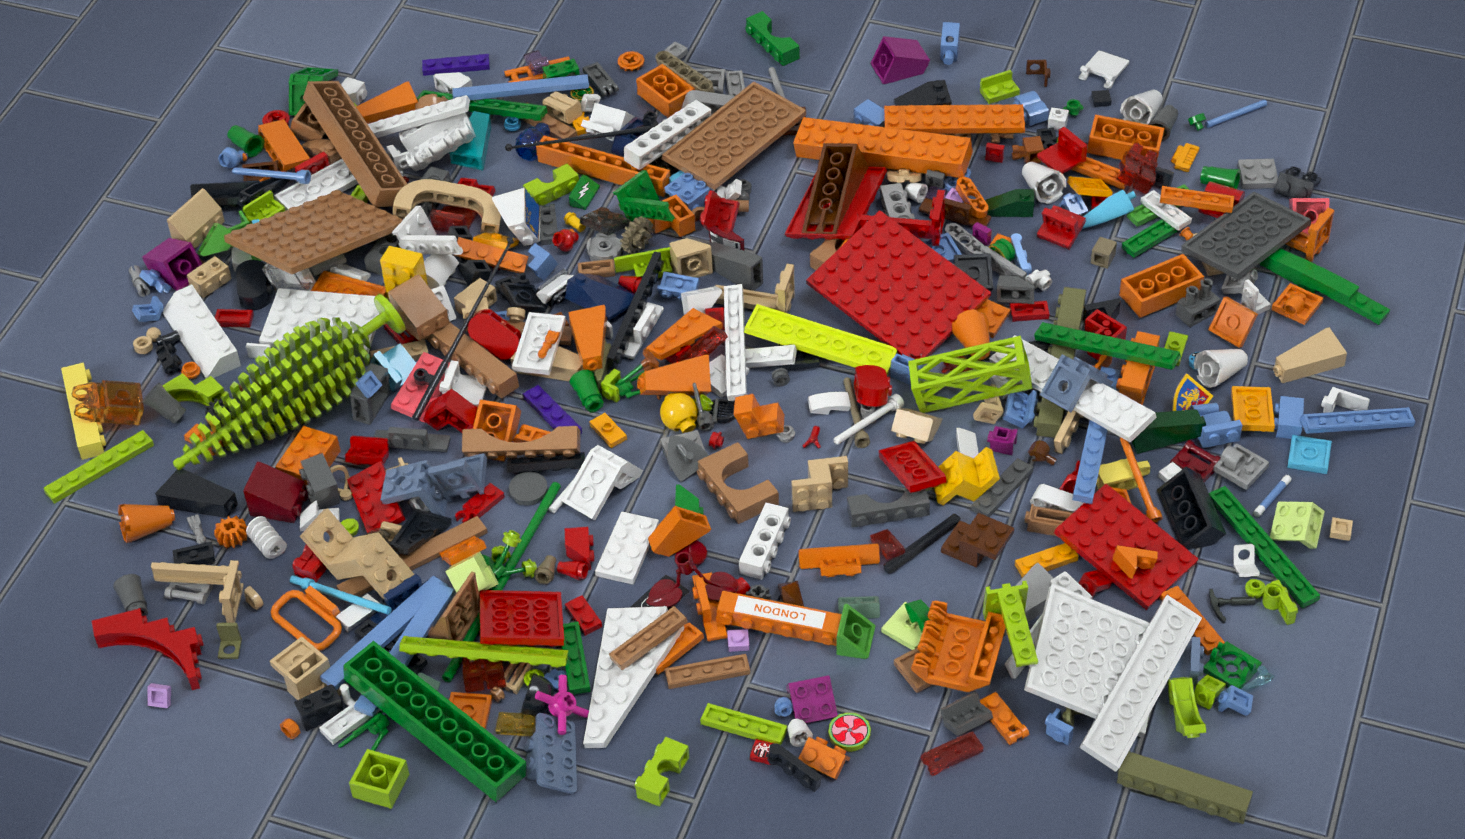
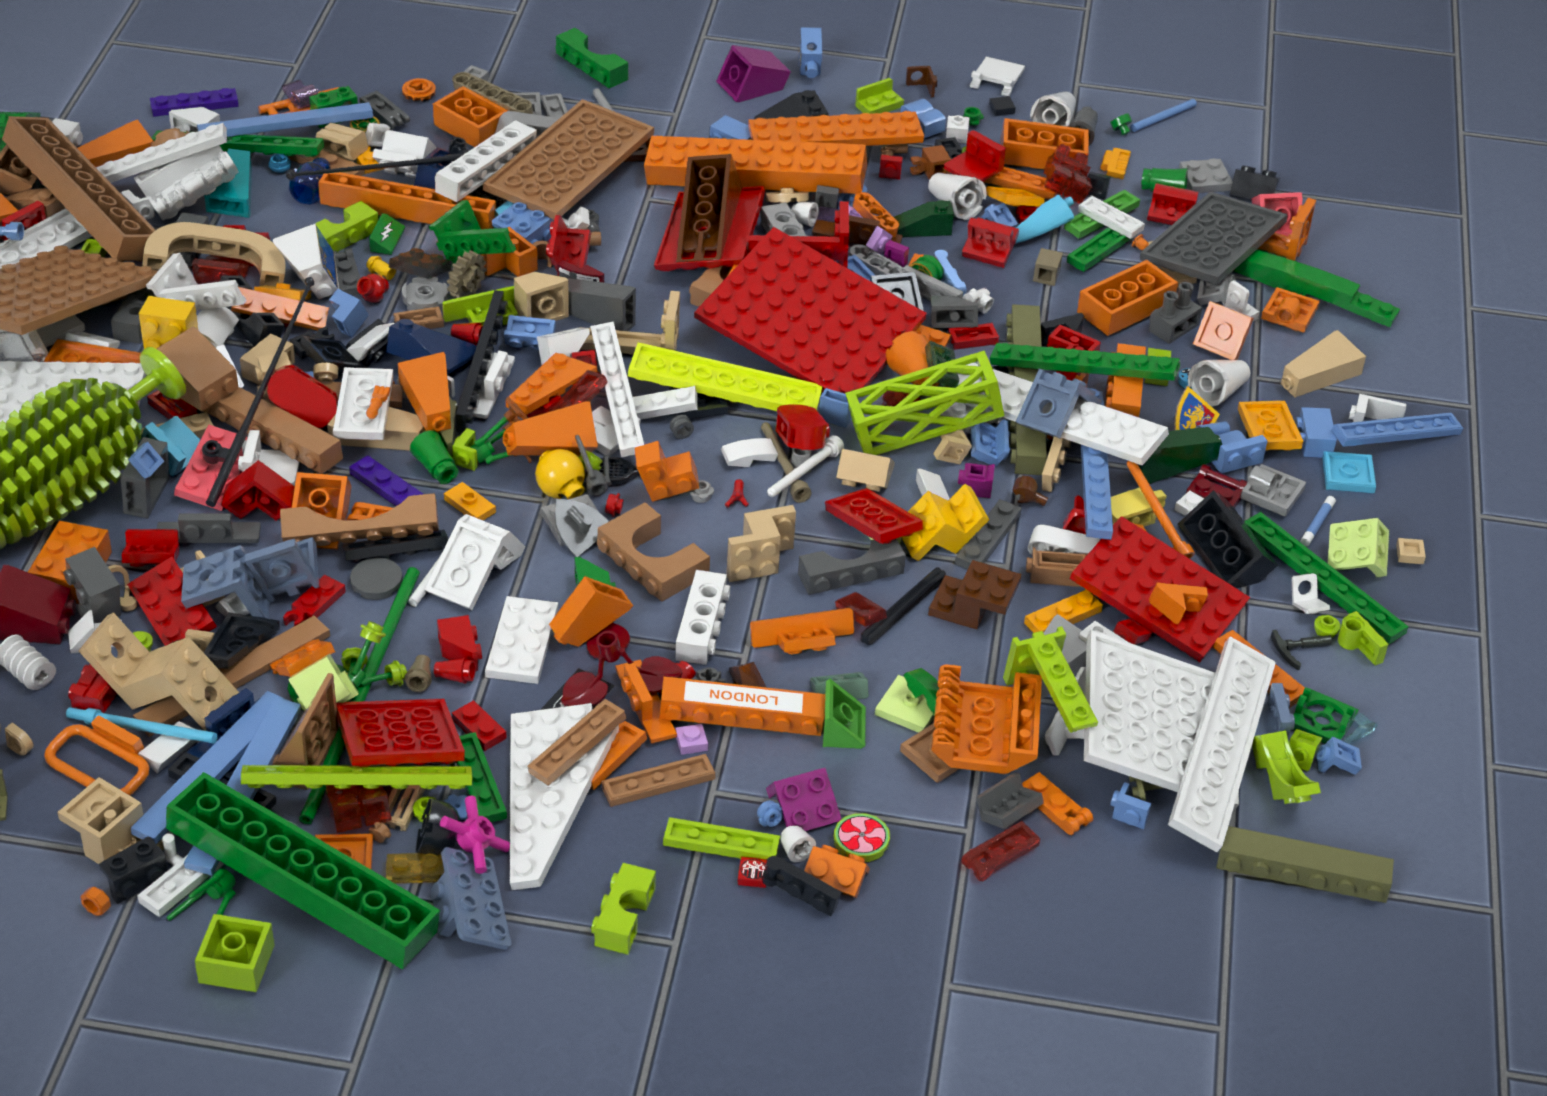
camera: 15 degrees left, 5 degrees down
(968, 221) = (878, 240): none -> lavender plate
(990, 333) = (940, 354): none -> clear green bracket
(1196, 199) = (1147, 201): orange plate -> none

